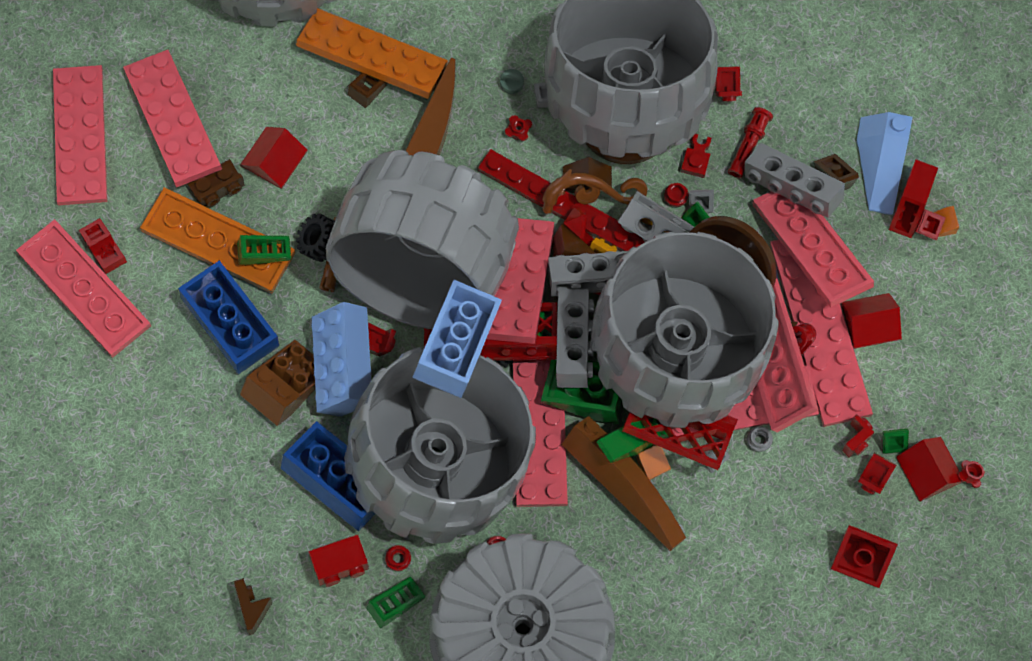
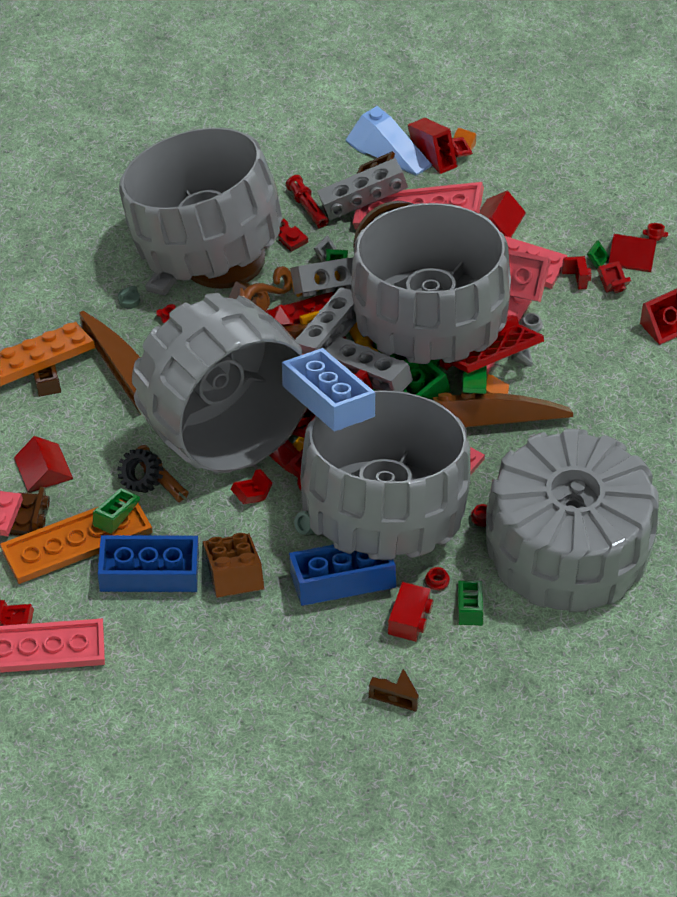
camera: 50 degrees left, 20 degrees down
(341, 358) = (253, 510): light blue brick -> none
(676, 194) = (306, 258): red plate -> none

